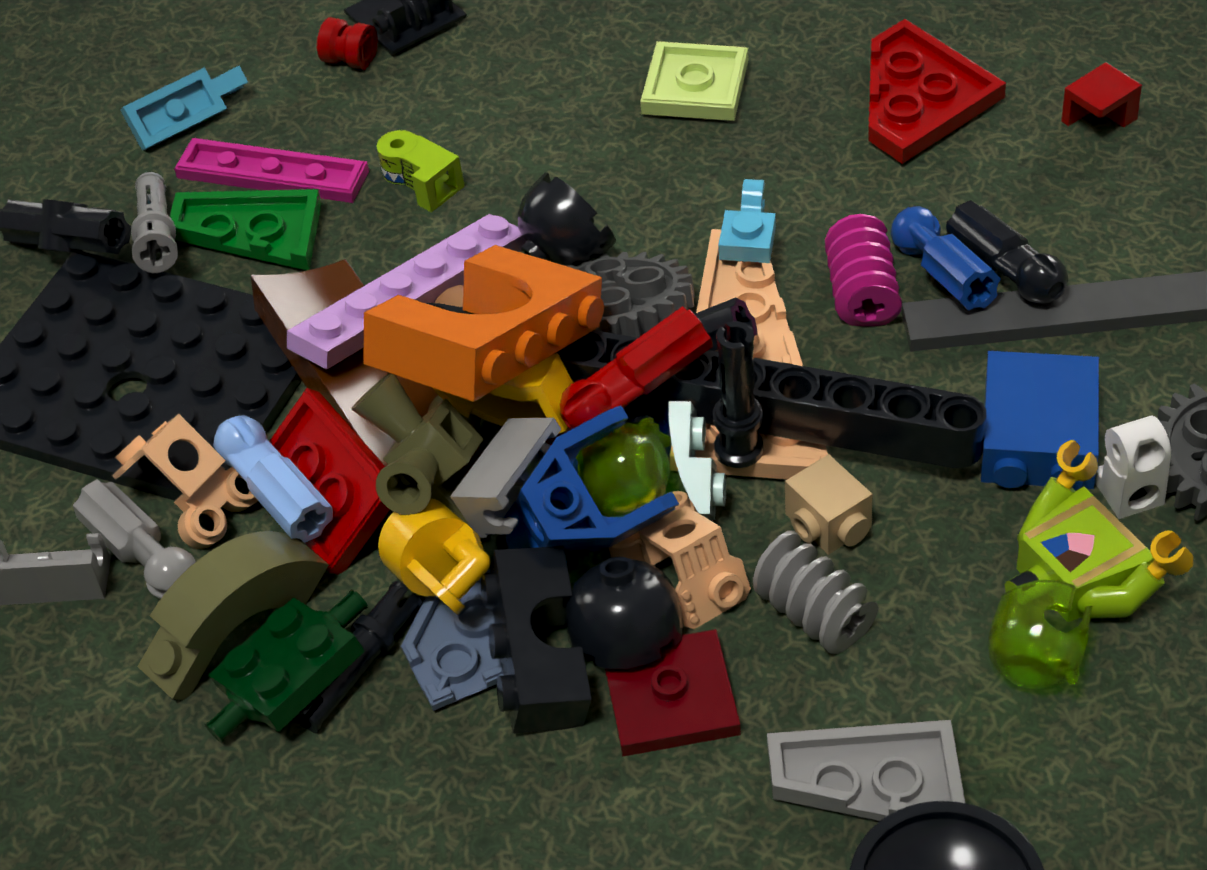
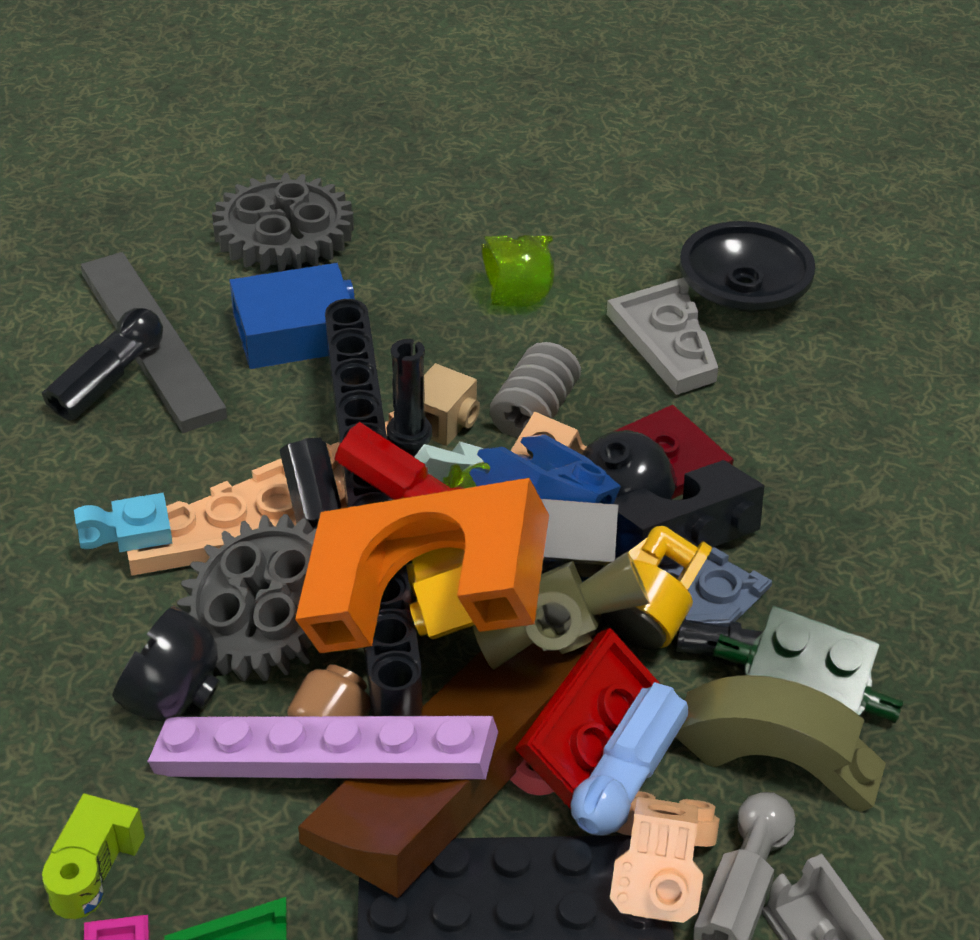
camera: 120 degrees left, 5 degrees down
(862, 271) = (159, 441): dark pink piece -> none
(945, 258) = (125, 395): blue piece -> none
(1084, 544) = (423, 269): lime torso -> none
(1135, 459) = (336, 241): white leg -> none

